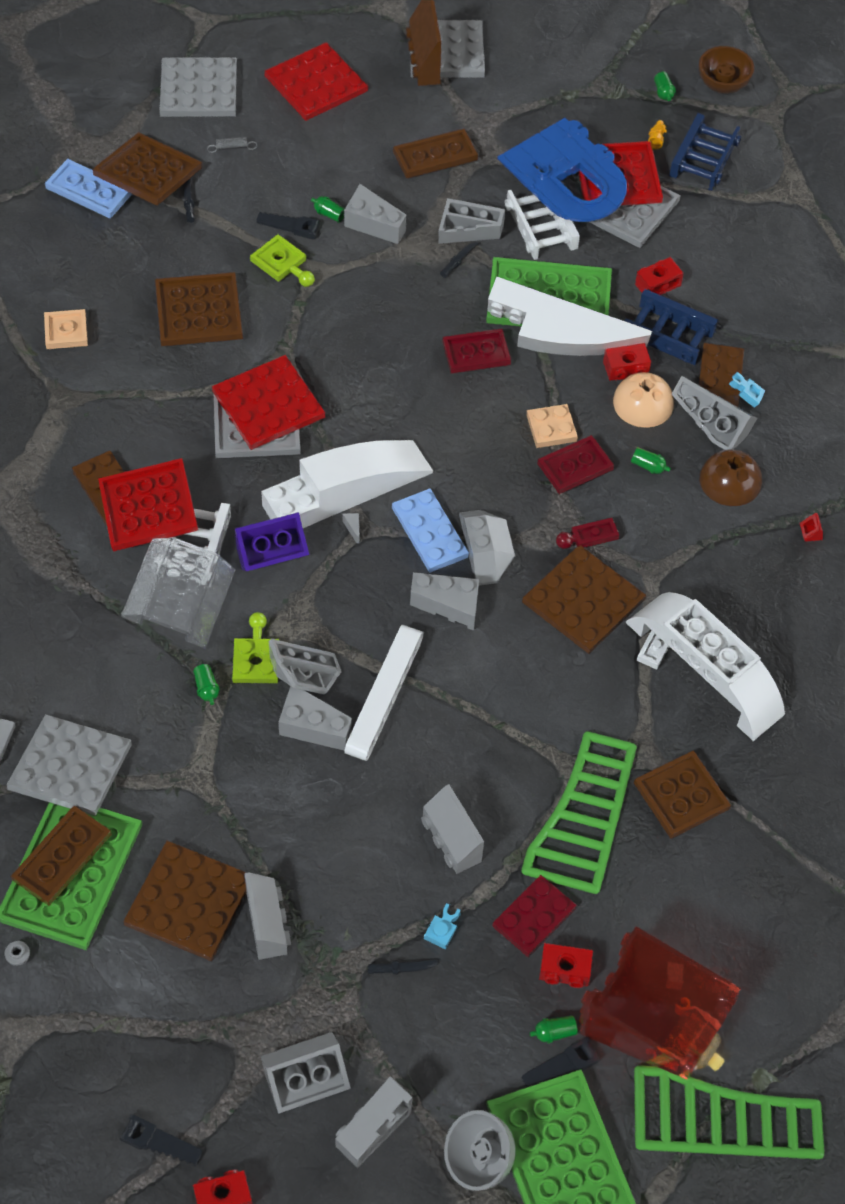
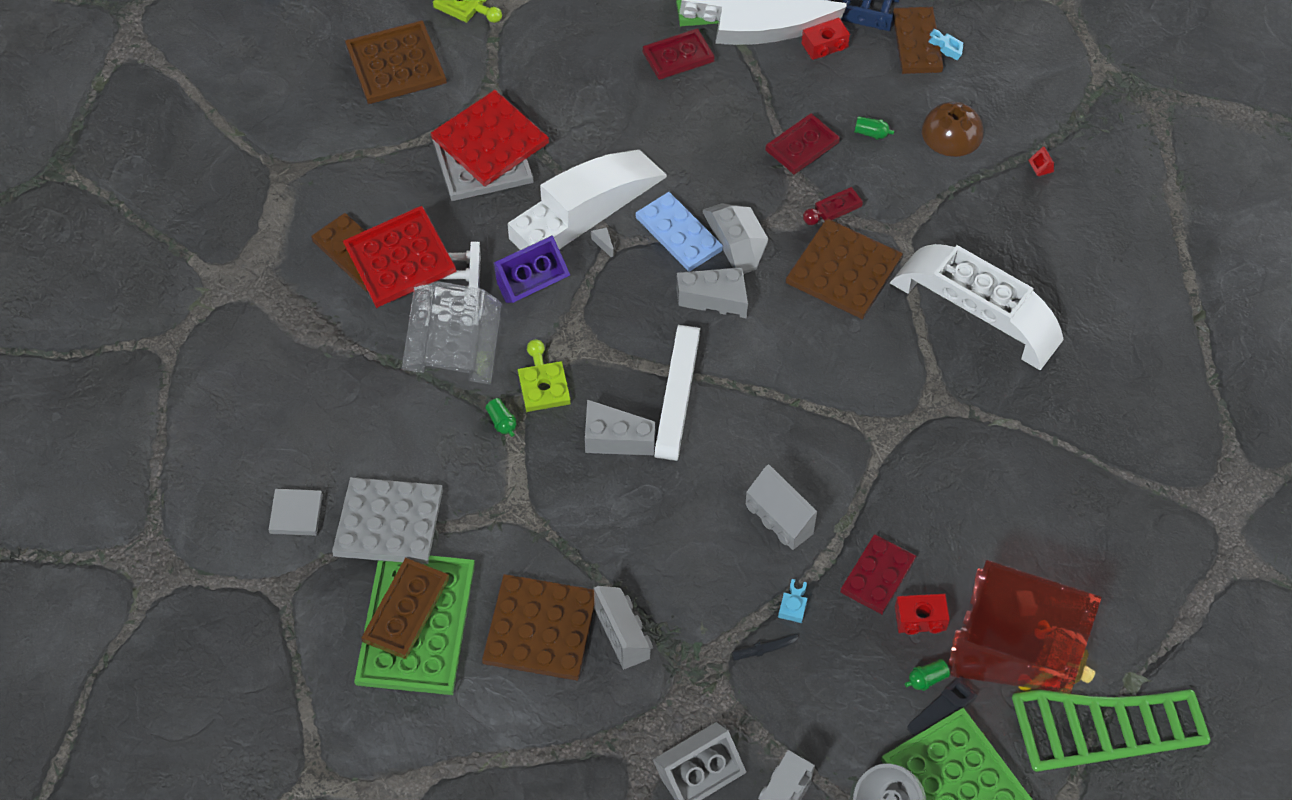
camera: 10 degrees left, 0 degrees up
(17, 959) = (385, 718): light grey plate -> none
(65, 329) = (268, 104): light nougat plate -> none
(304, 666) = (594, 381): light grey wedge -> none
(551, 426) = (769, 112): light nougat plate -> none
(560, 812) = (880, 454): bright green bar -> none
(644, 400) = (850, 71): light nougat piece -> none
(653, 651) = (924, 303): white plate -> none
(682, 794) = (987, 432): reddish brown plate -> none
(719, 419) = (927, 76): light grey wedge -> none

